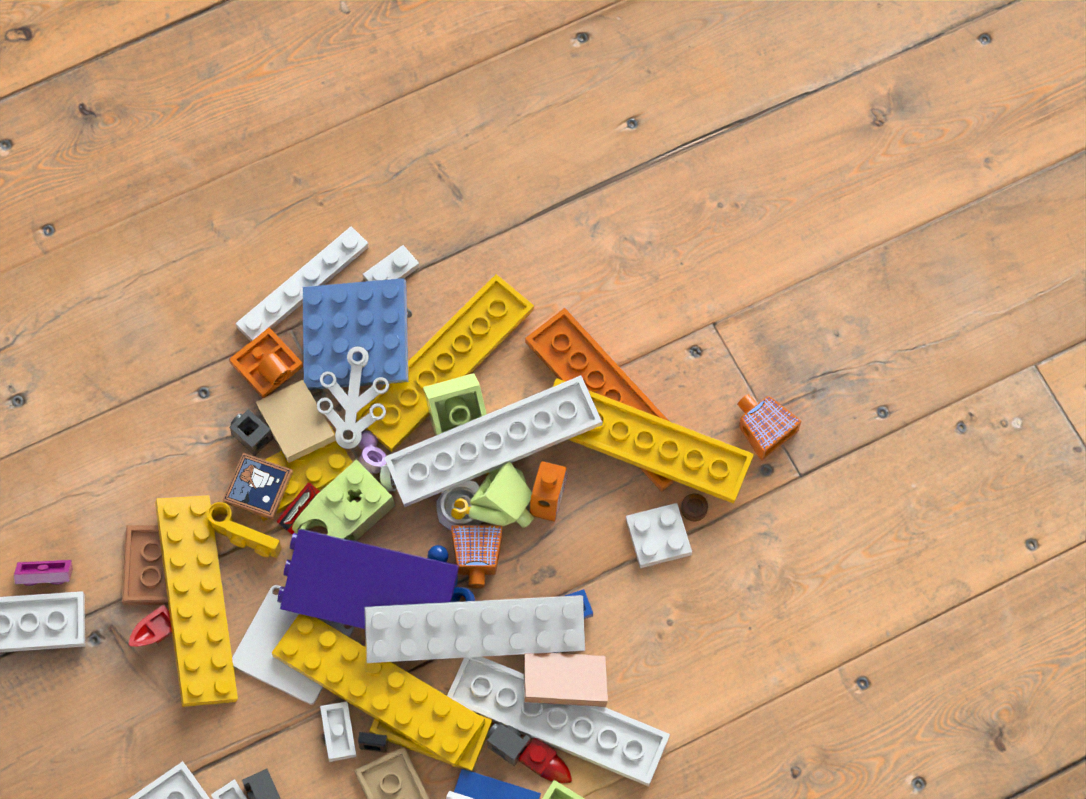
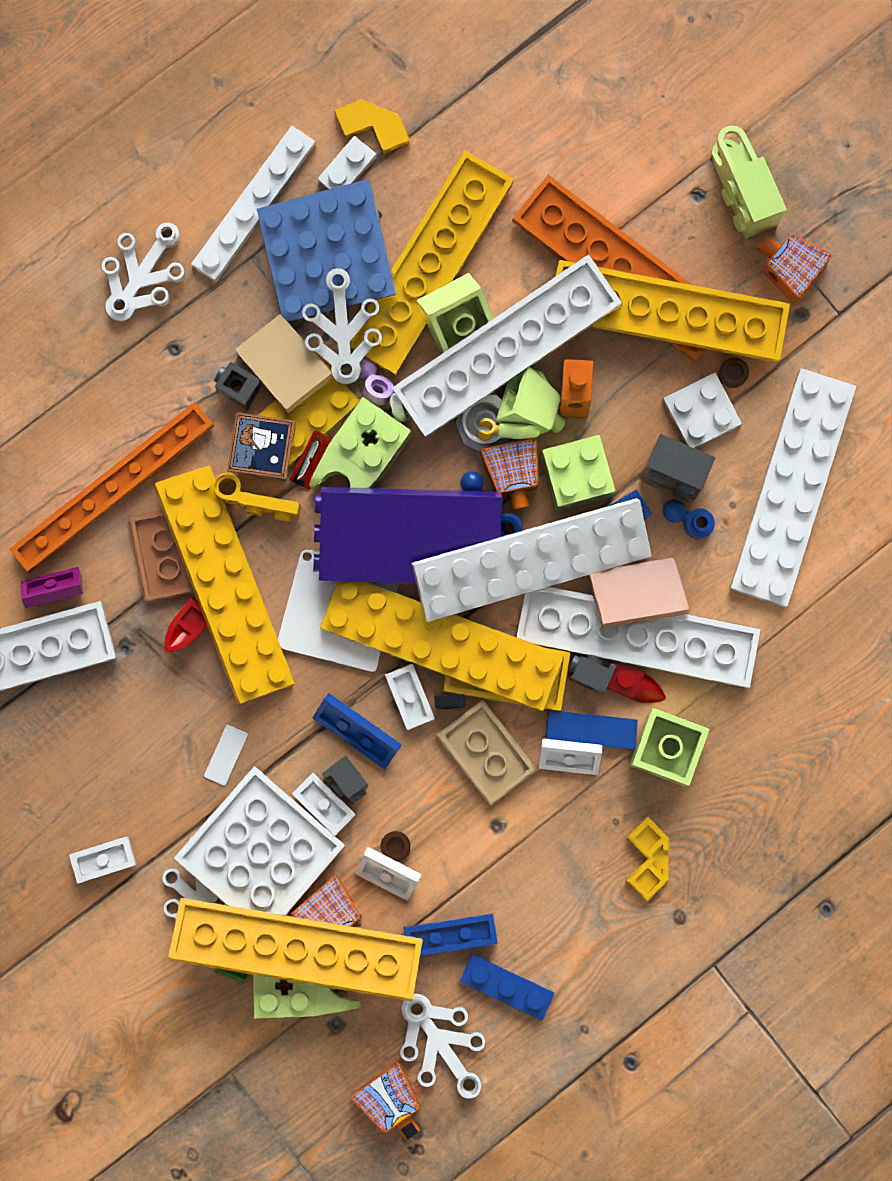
camera: 15 degrees left, 15 degrees up
(118, 497) = (111, 487): none -> orange plate
(160, 751) = (225, 755): none -> white sticker
(190, 325) = (140, 275): none -> white plant
(266, 363) = (235, 302): orange plate -> none
(283, 751) = (356, 731): none -> blue plate
(414, 231) = (364, 116): none -> yellow tile
(534, 565) = (577, 473): none -> yellowish green brick
(615, 616) = (675, 511): none -> blue plate
(623, 575) = (677, 468): none -> dark grey brick
(726, 618) = (793, 488): none -> white plate
(737, 349) = (747, 184): none -> yellowish green brick

